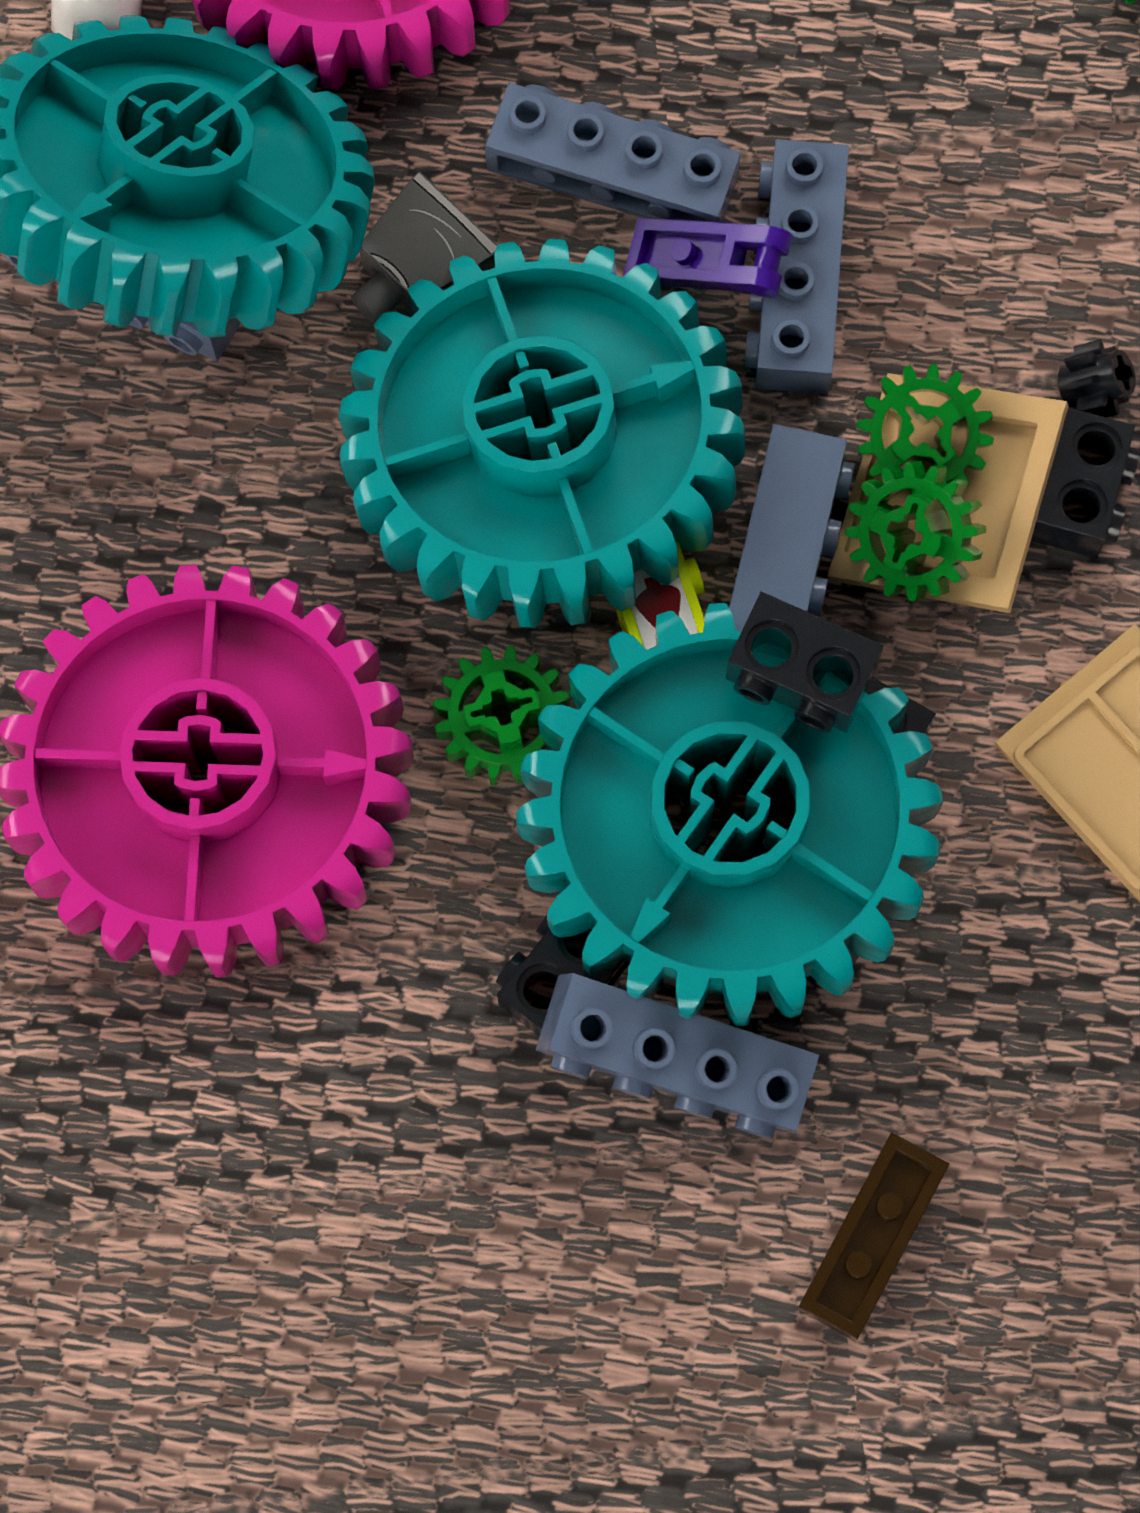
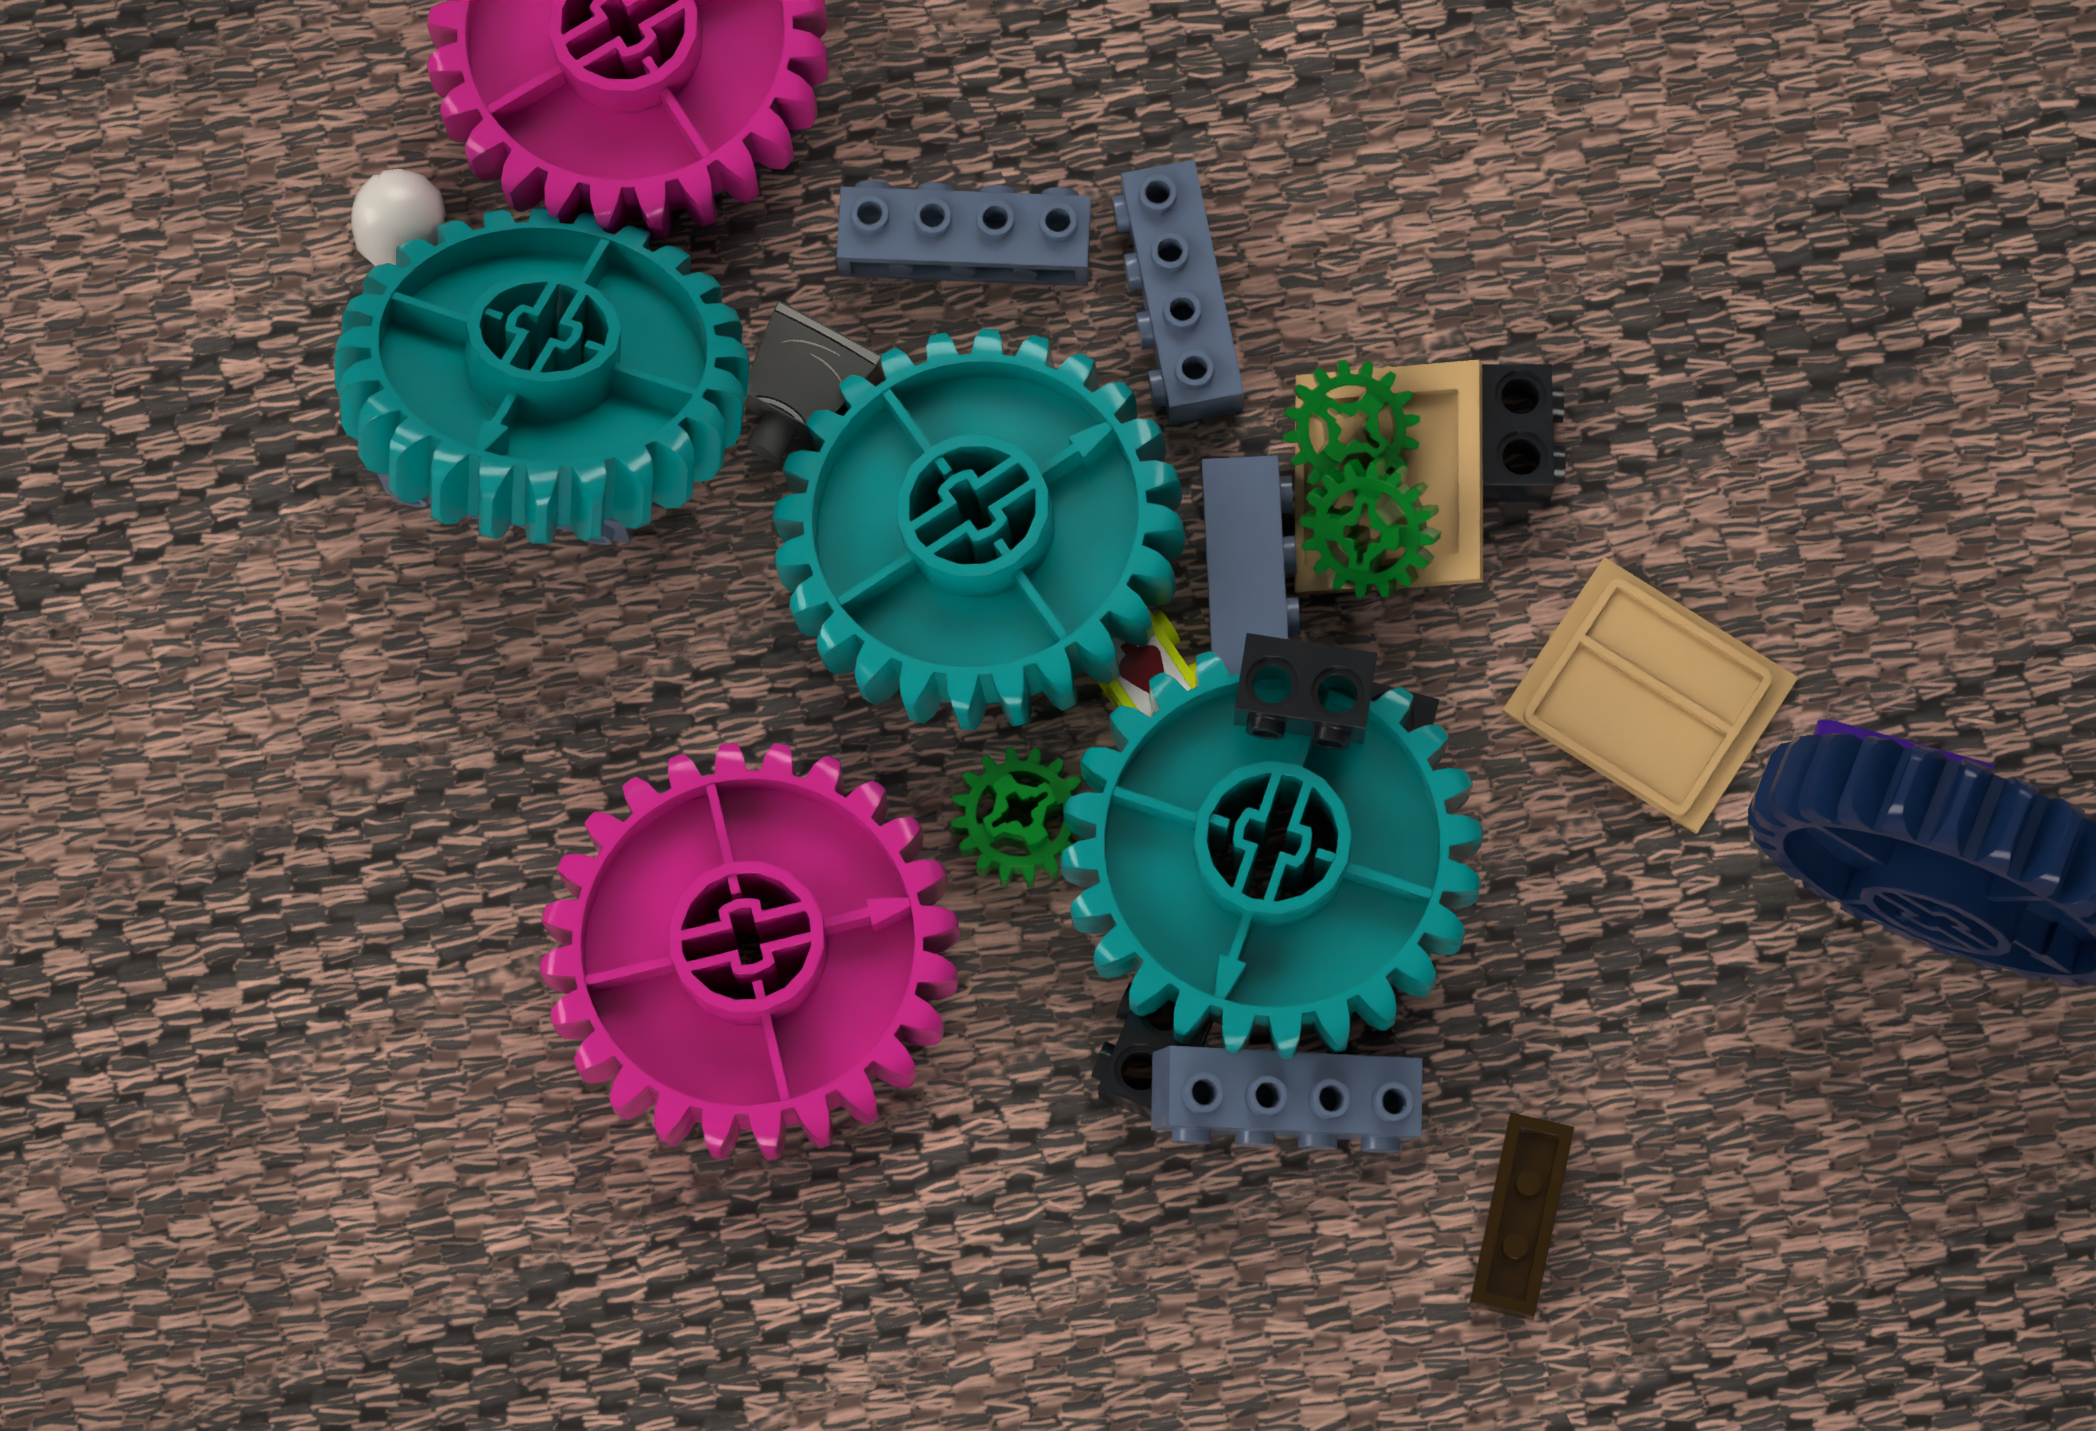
camera: 15 degrees left, 0 degrees up
(710, 254) = (1088, 307): dark purple plate -> none
(1096, 379) = (1501, 327): black gear -> none

